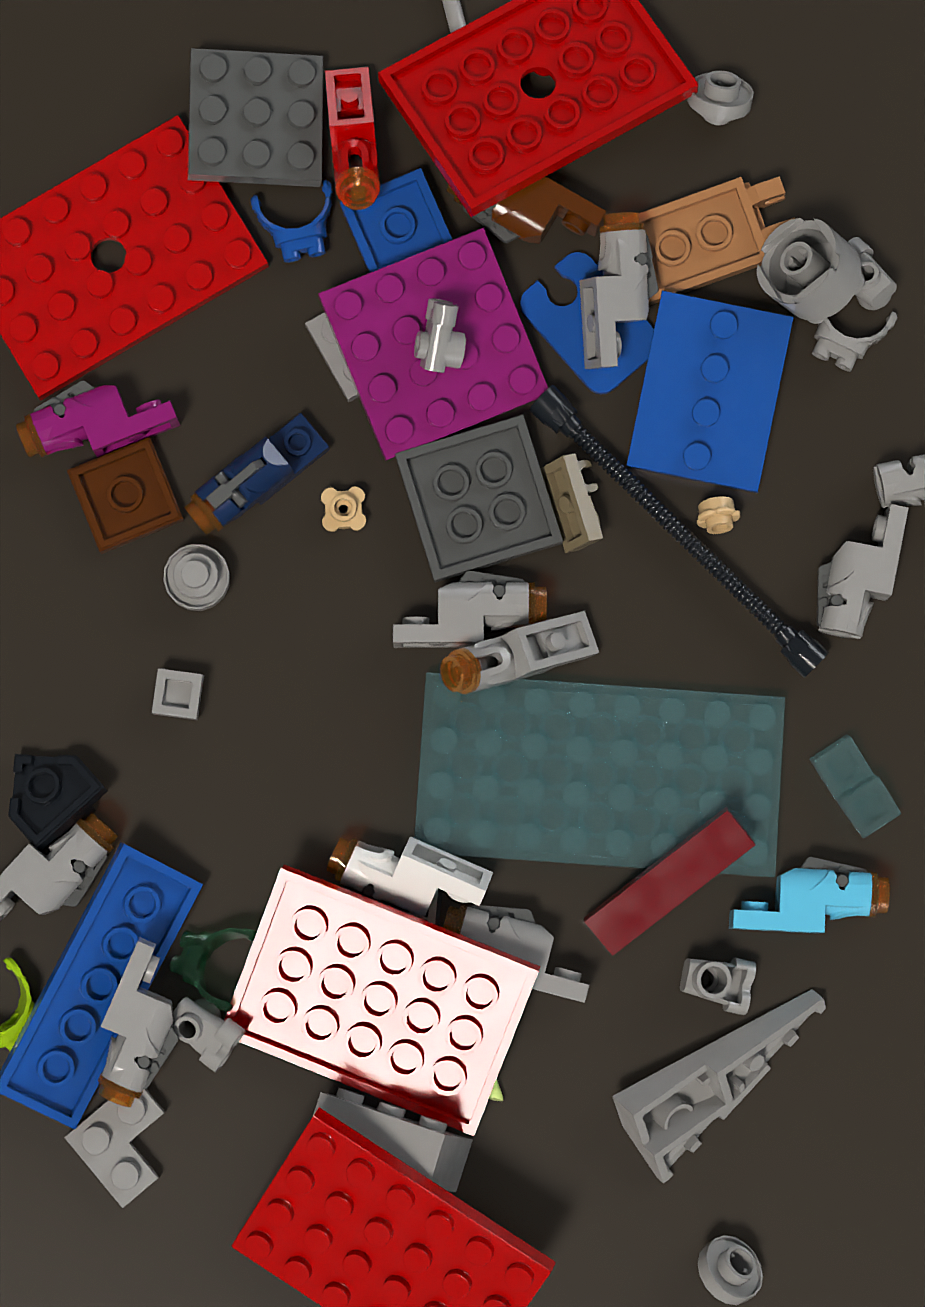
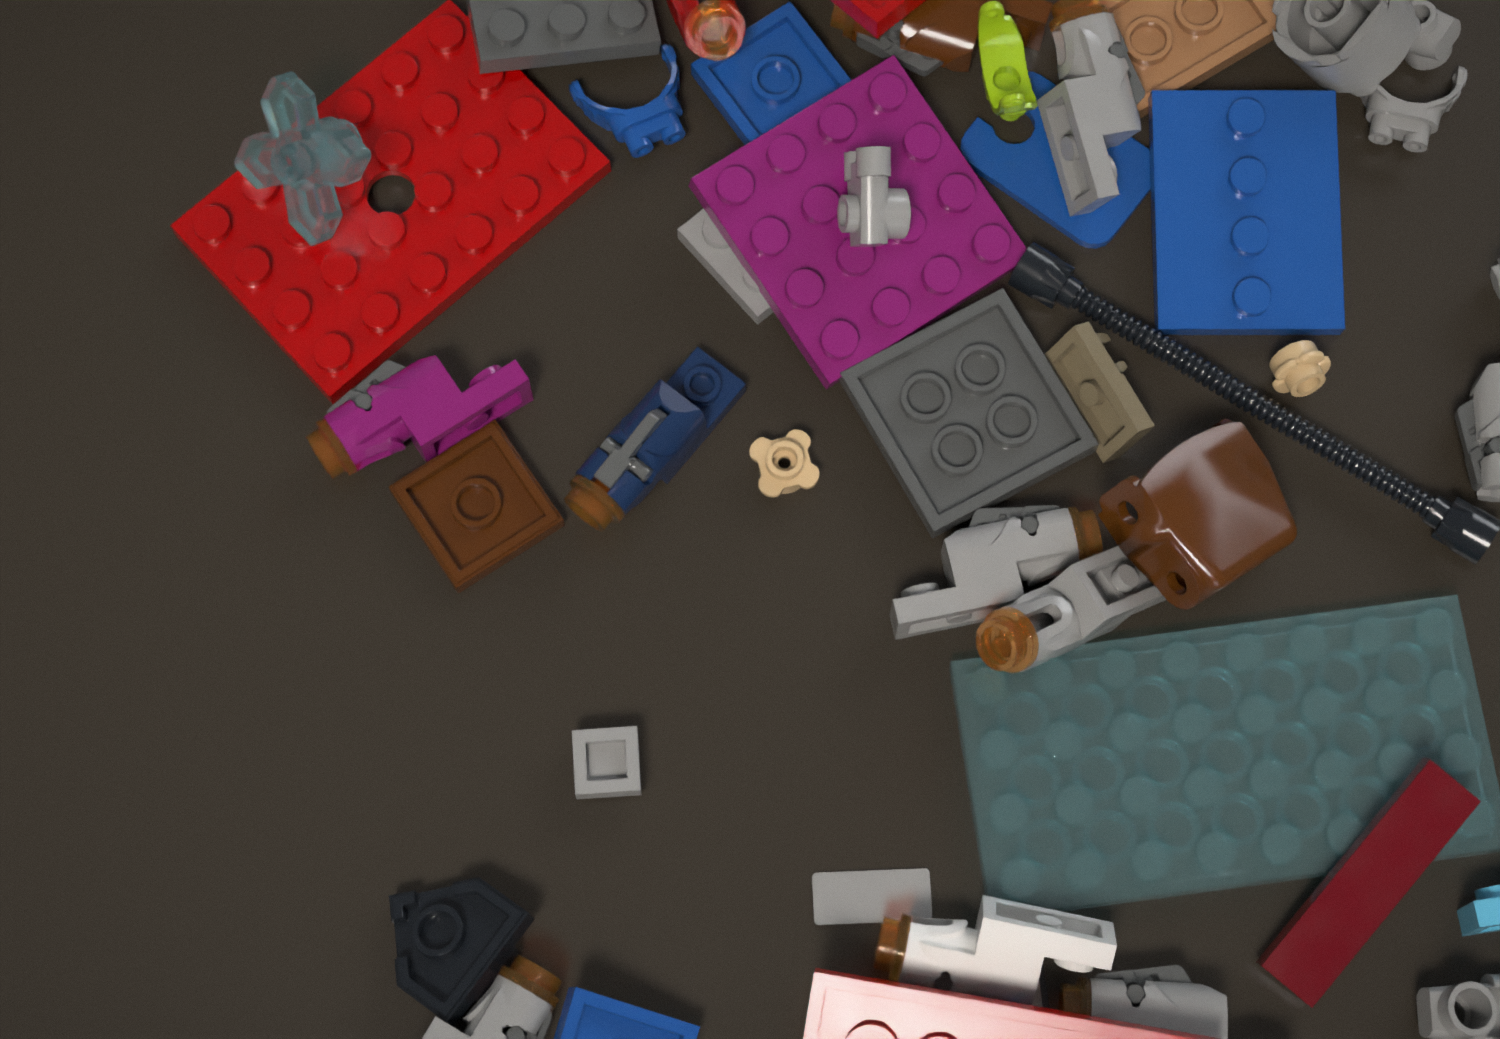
camera: 10 degrees left, 10 degrees down
(51, 223) = (303, 156): none -> clear light blue plant
(196, 577) = (600, 595): light grey plate -> none
(338, 820) = (870, 895): none -> light grey sticker
(560, 252) = (1003, 63): none -> lime helmet
(618, 609) = (1202, 515): none -> reddish brown piece

